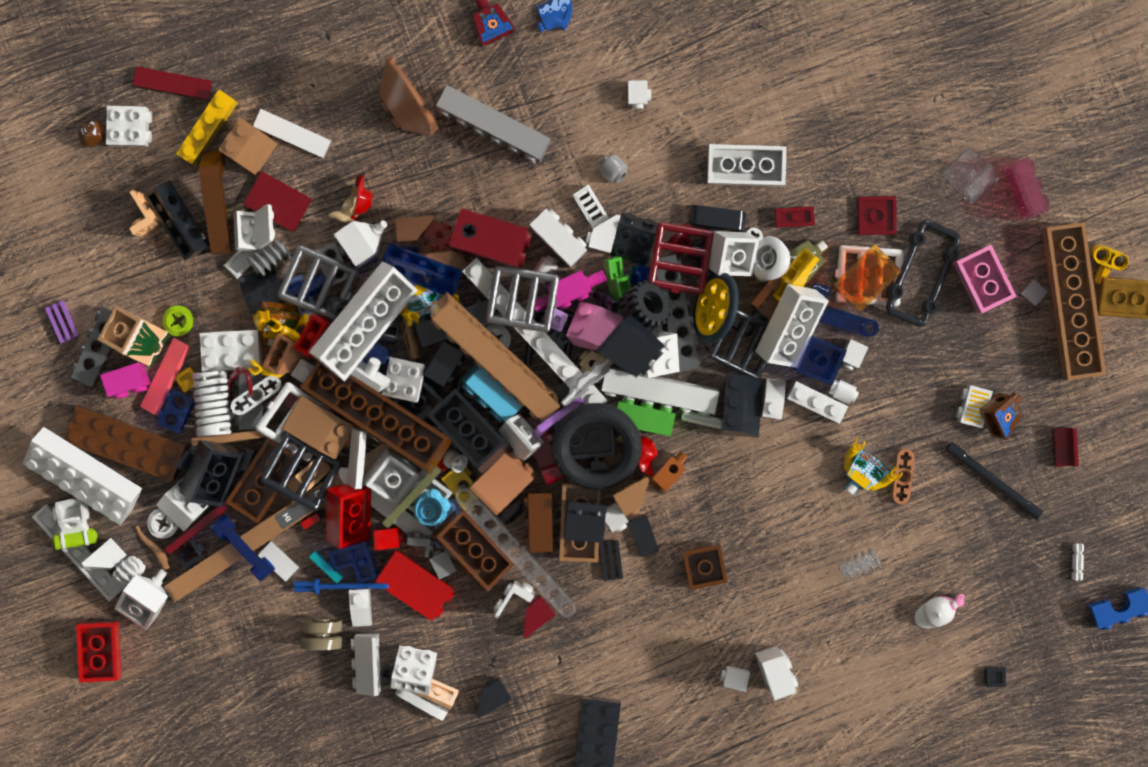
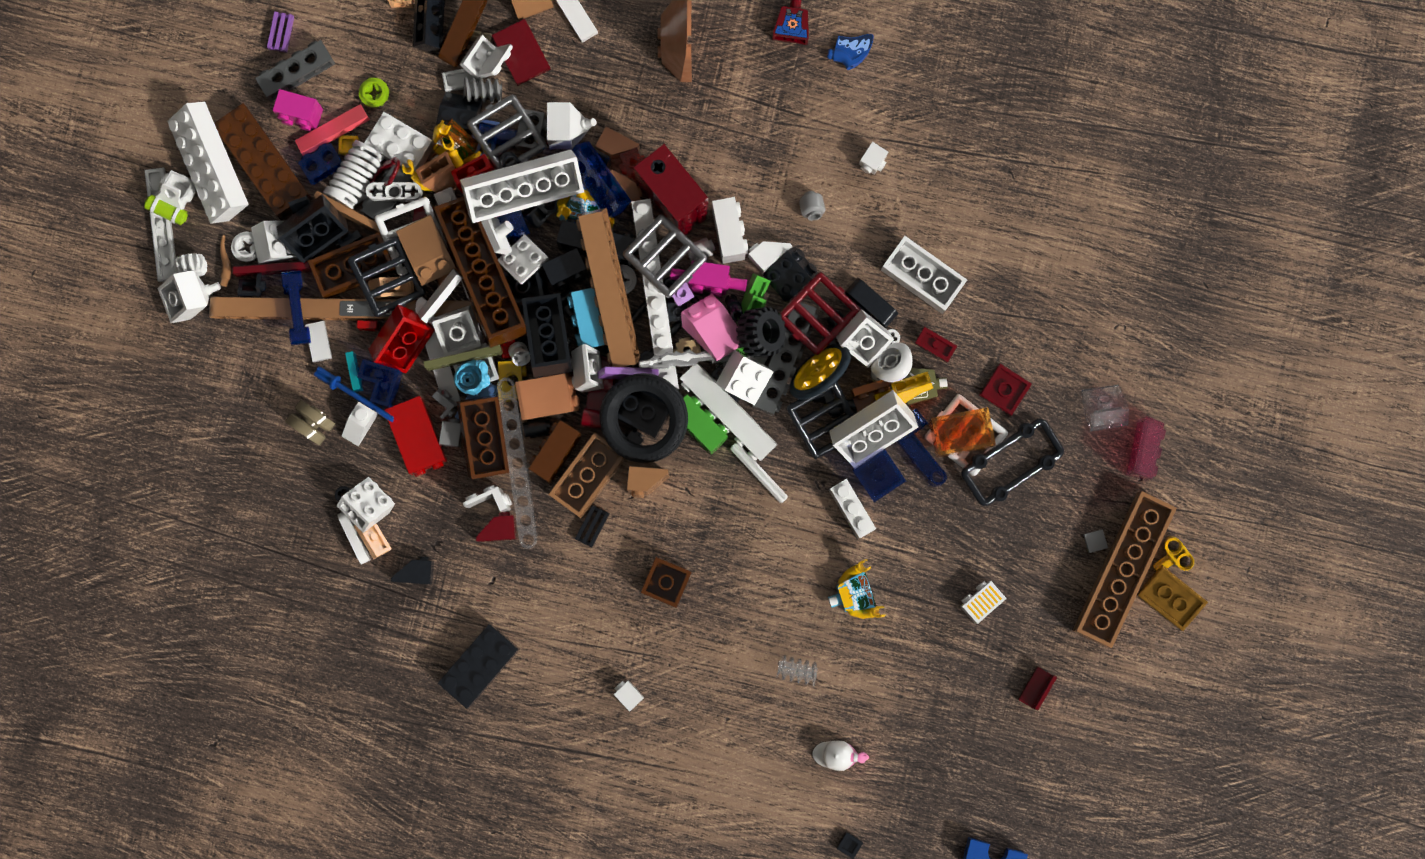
camera: 30 degrees right, 5 degrees down
(98, 651) = (120, 314): red brick -> none
(105, 558) = (178, 241): white slope -> none
(133, 336) = (329, 79): light nougat slope -> none
(356, 204) = (585, 95): hair -> none
(366, 664) = (331, 474): white slope -> none
(387, 538) = (420, 381): red slope -> none
(410, 340) = (551, 233): medium nougat pin -> none
(493, 124) = (738, 104): light grey brick -> none
(583, 191) = (773, 207): white slope -> none
(585, 521) = (592, 475): black bracket -> none
(615, 518) = (617, 492): white brick -> none
(632, 347) = (727, 352): black slope -> none
(639, 274) = (775, 303): clear blue gear -> none
(643, 536) = (633, 524): black tile -> none
(648, 454) = (681, 456): red hair -> none
(663, 478) = (681, 485): dark orange torso -> none
(681, 239) = (829, 298): dark red hat -> none
(741, 406) = (787, 470): black slope -> none
(773, 399) = (817, 482): white slope -> none
(776, 673) = (664, 710): white brick -> none
(843, 391) = (880, 516): white brick -> none
(854, 354) = (909, 490): white brick -> none
(908, 482) = (897, 613): nougat beam -> none
(984, 279) = (1061, 500): bright pink brick -> none
(1001, 414) = (1001, 623): reddish brown torso -> none
(1025, 504) = (972, 716): black piece -> none
(1077, 561) = (984, 794): white axle -> none

